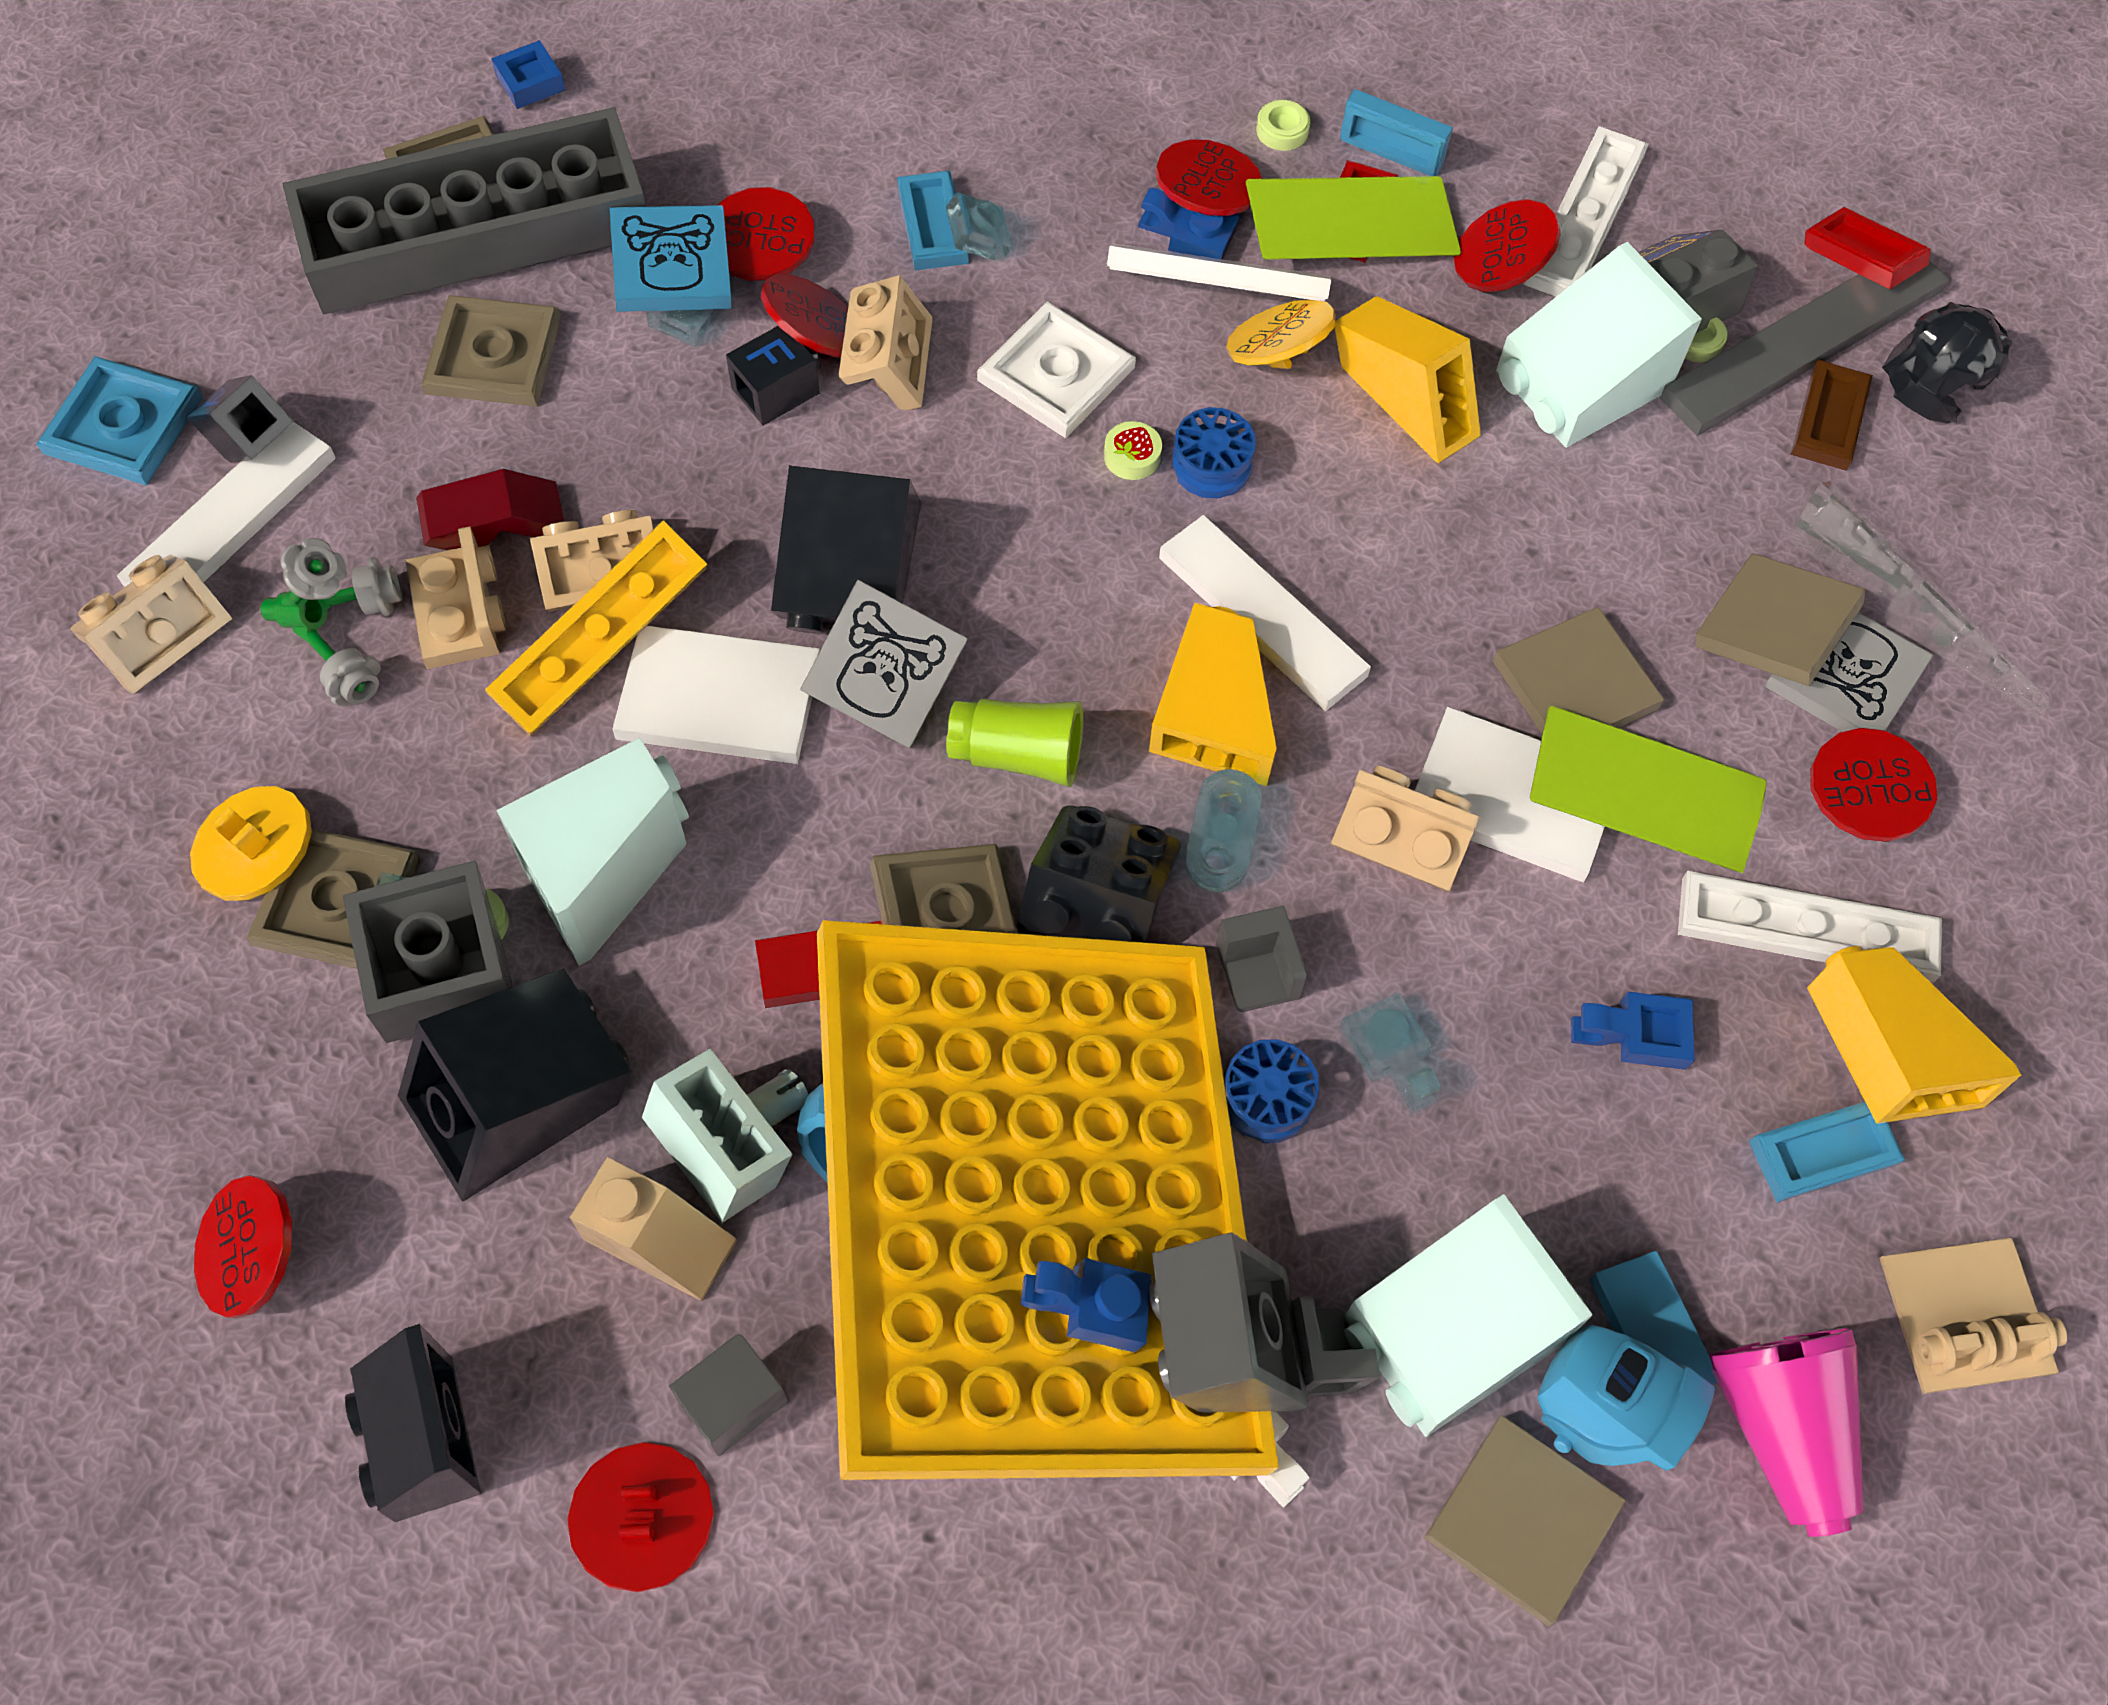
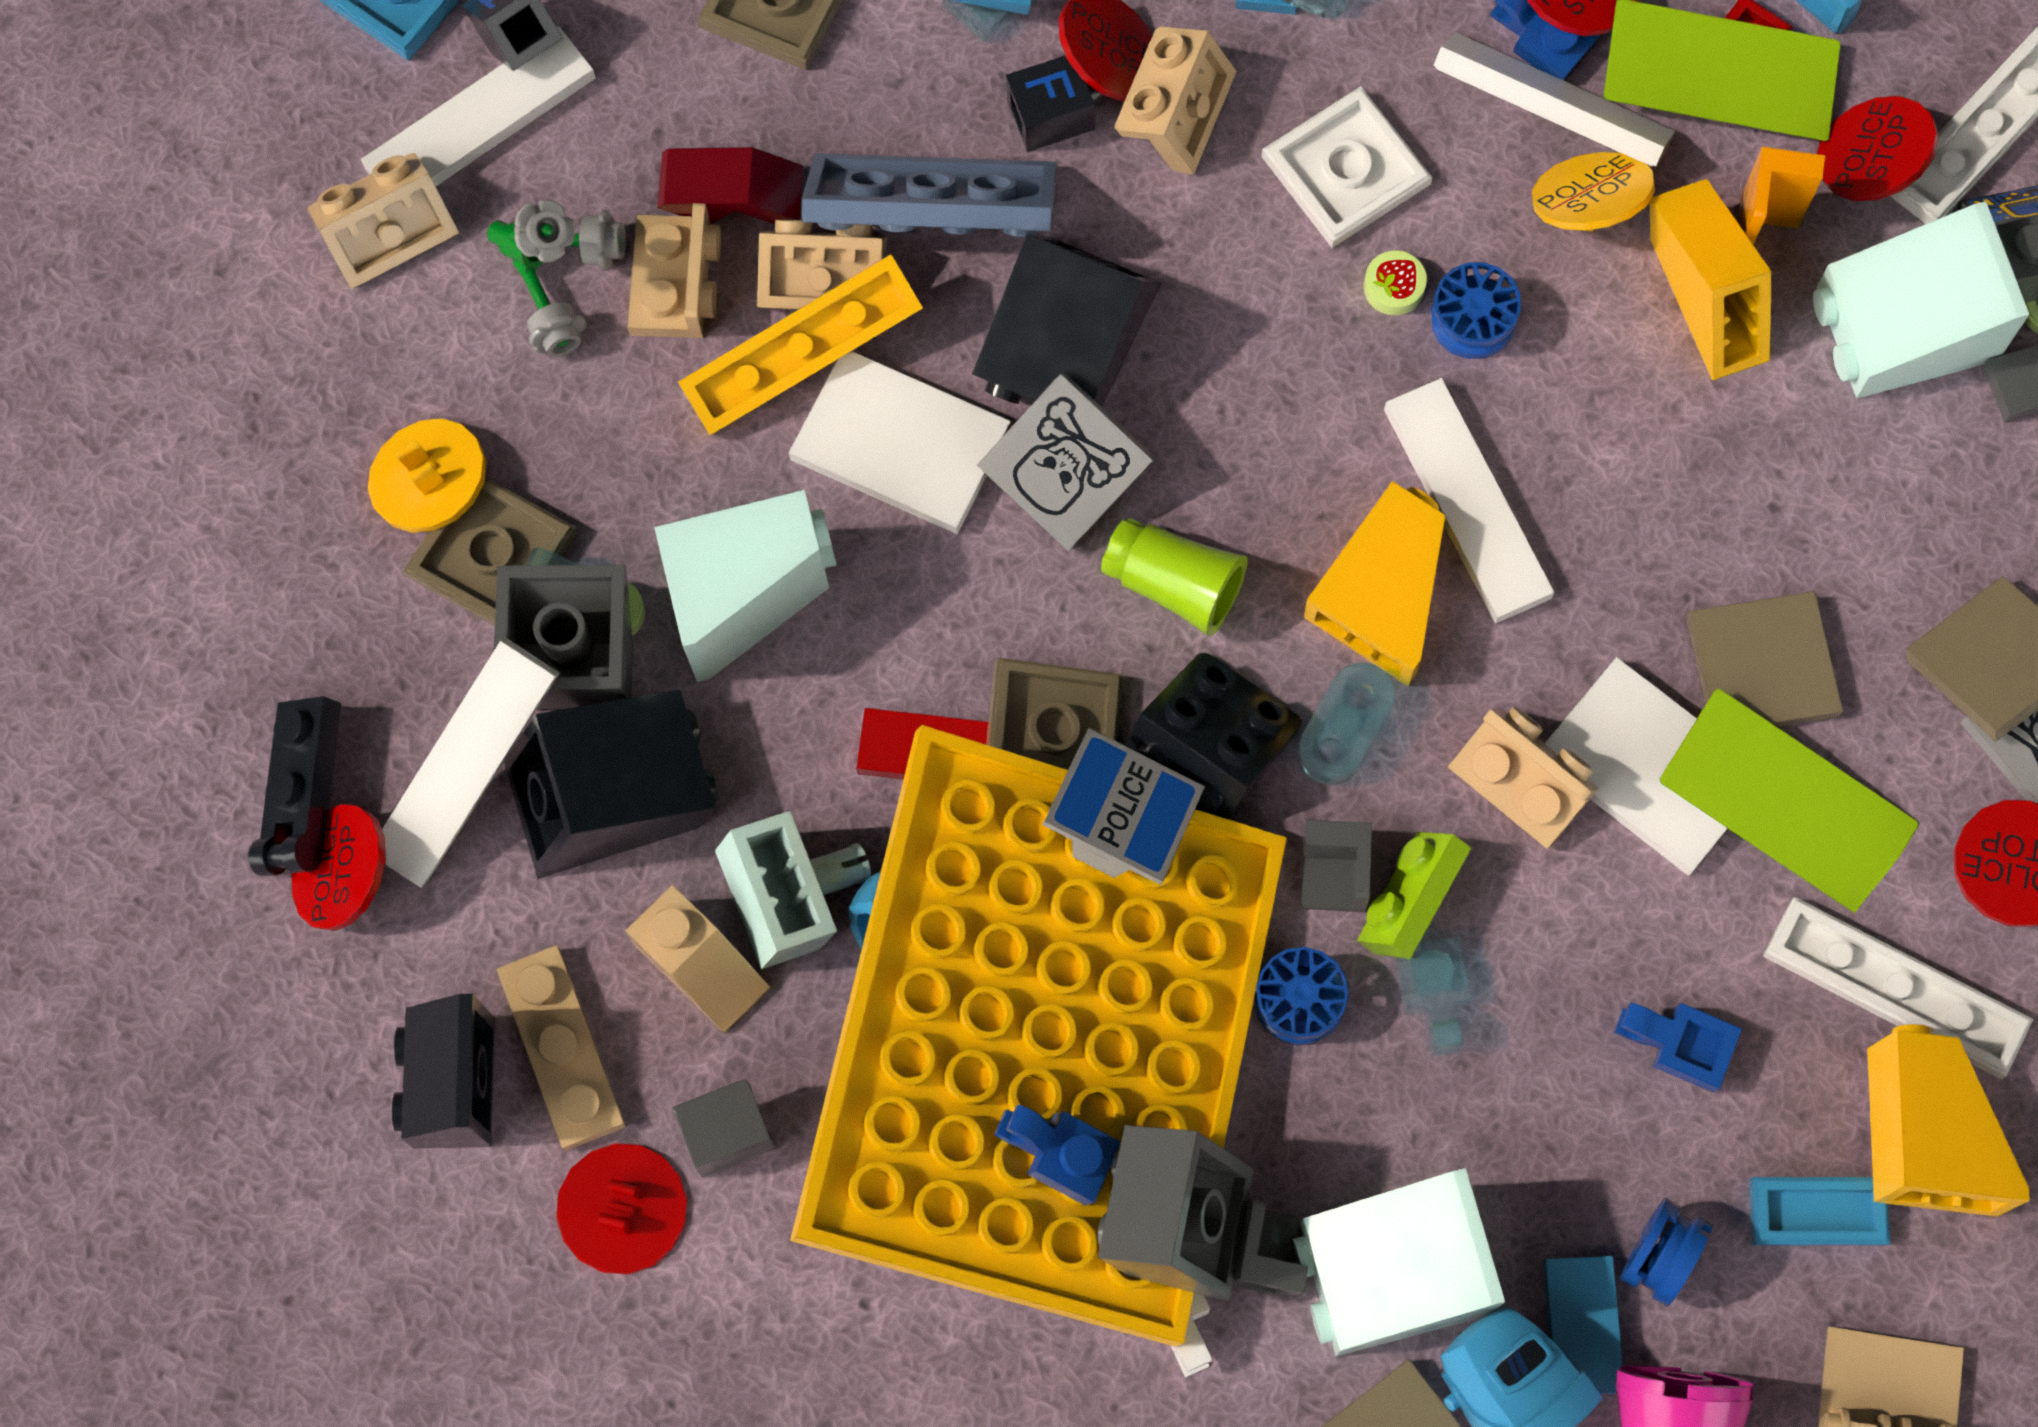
camera: 25 degrees right, 10 degrees up
(180, 1180) = (297, 787): none -> black plate
(354, 1098) = (465, 760): none -> white tile
(531, 1366) = (561, 1048): none -> tan plate
(663, 473) = (930, 193): none -> sand blue plate
(1044, 954) = (1122, 809): none -> piece
(1343, 965) = (1413, 894): none -> lime plate
(1445, 281) = (1779, 189): none -> light orange panel
(1710, 1229) = (1673, 1256): none -> blue wheel

